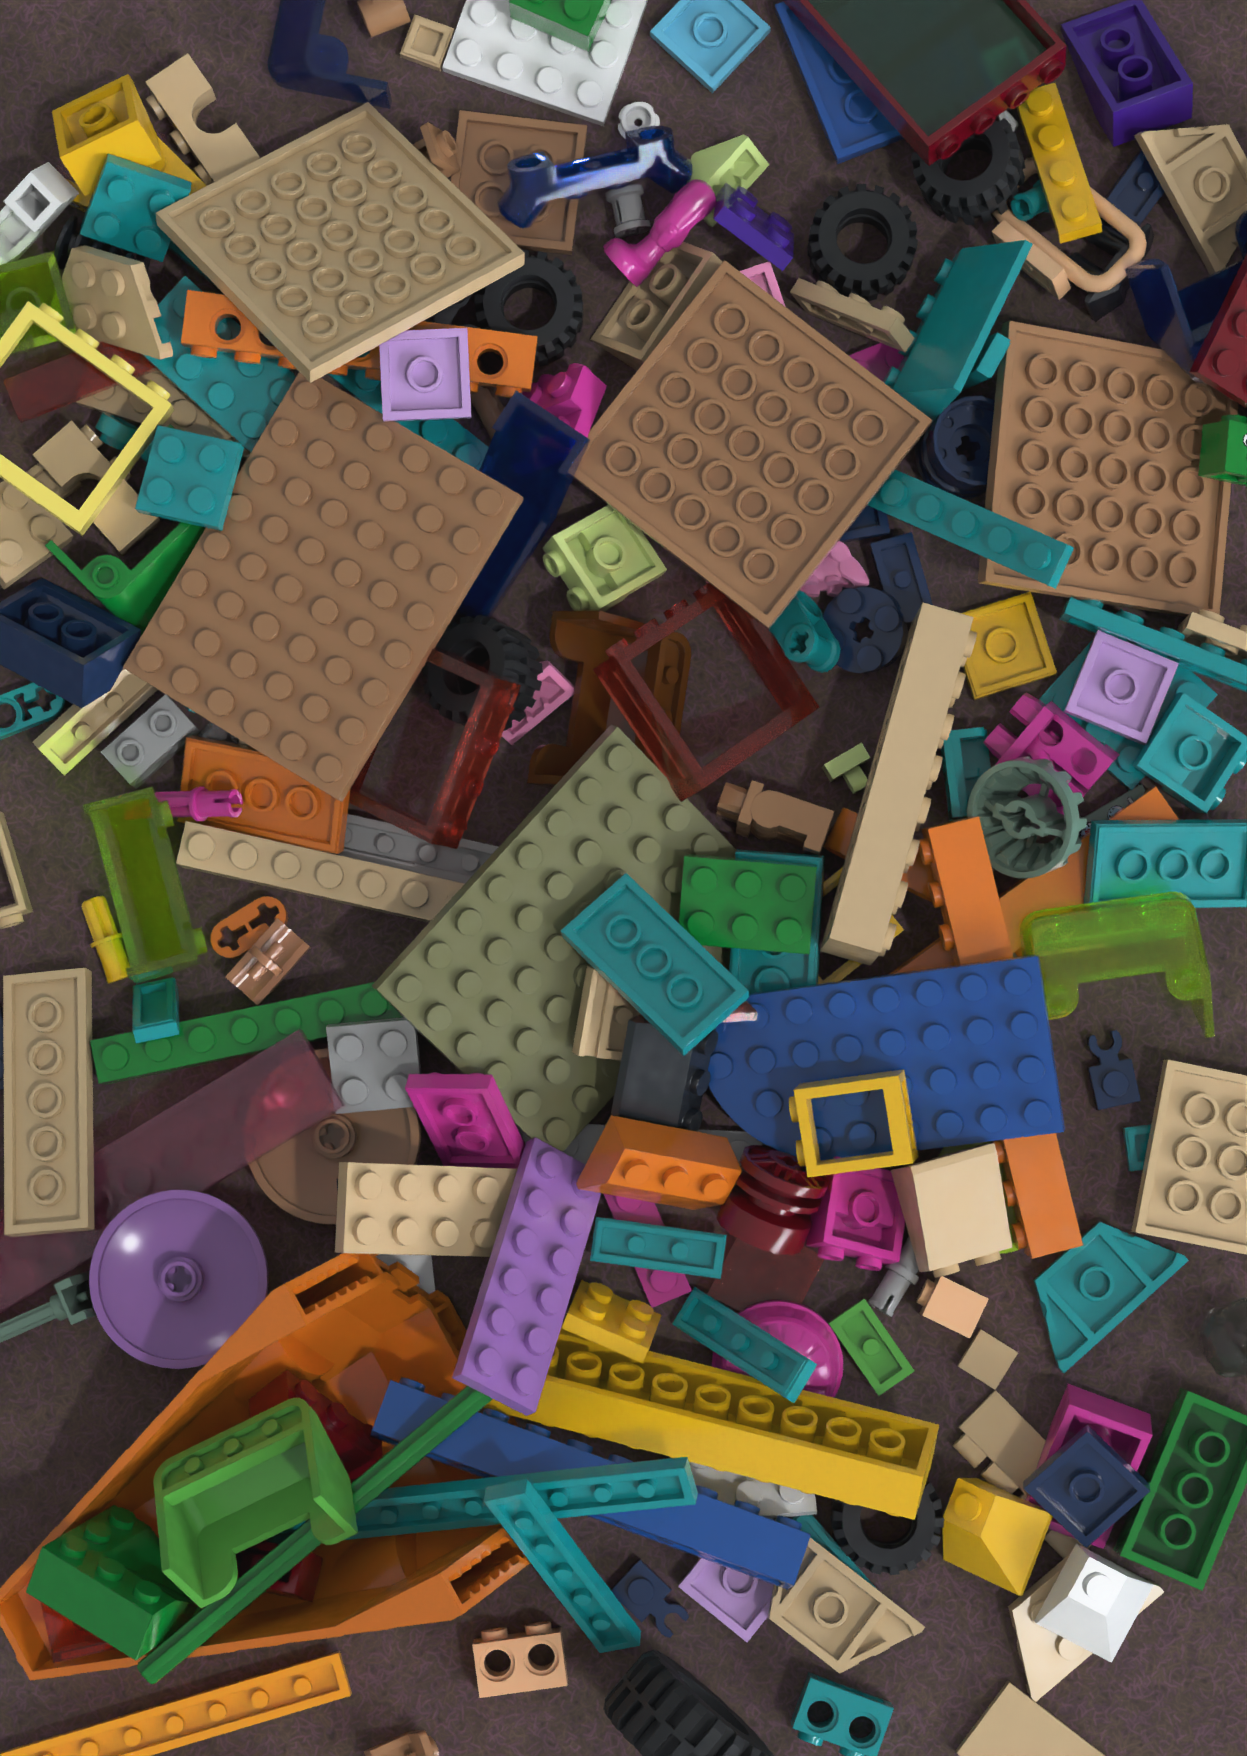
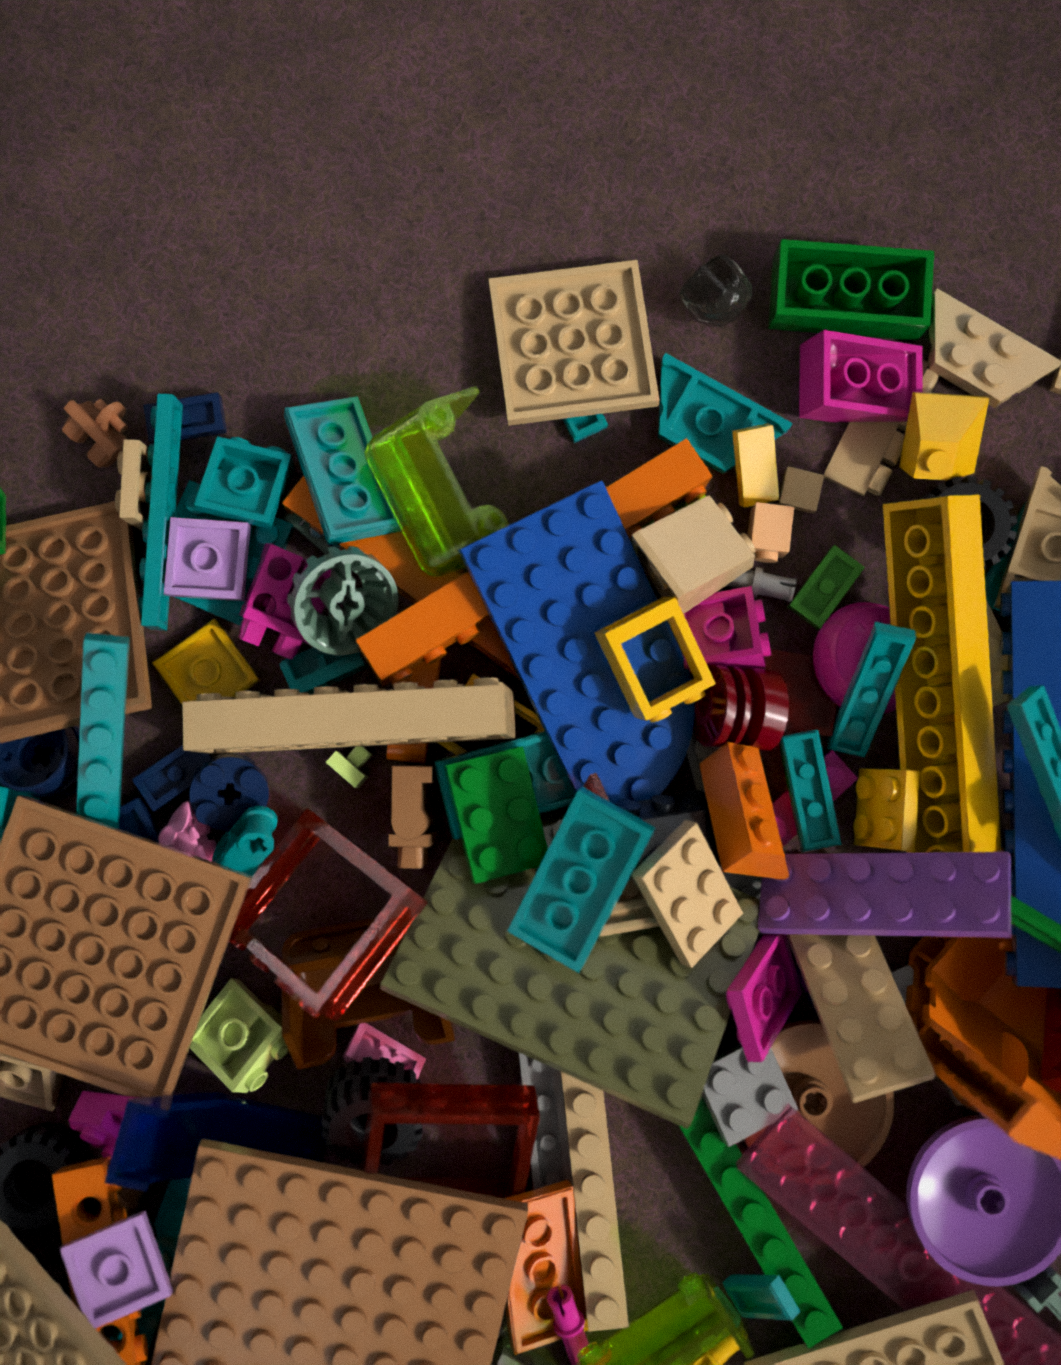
camera: 110 degrees left, 0 degrees up
(241, 919) = (651, 1240): orange beam -> none
(268, 962) = (684, 1210): nougat hips -> none
(601, 1071) = (687, 893): none -> tan plate
(1030, 1315) = (756, 464): none -> yellow tile
(1086, 1486) = (884, 370): dark blue plate -> none
(1093, 1603) = (971, 338): white slope -> none
(1112, 1080) = (536, 462): dark blue plate -> none

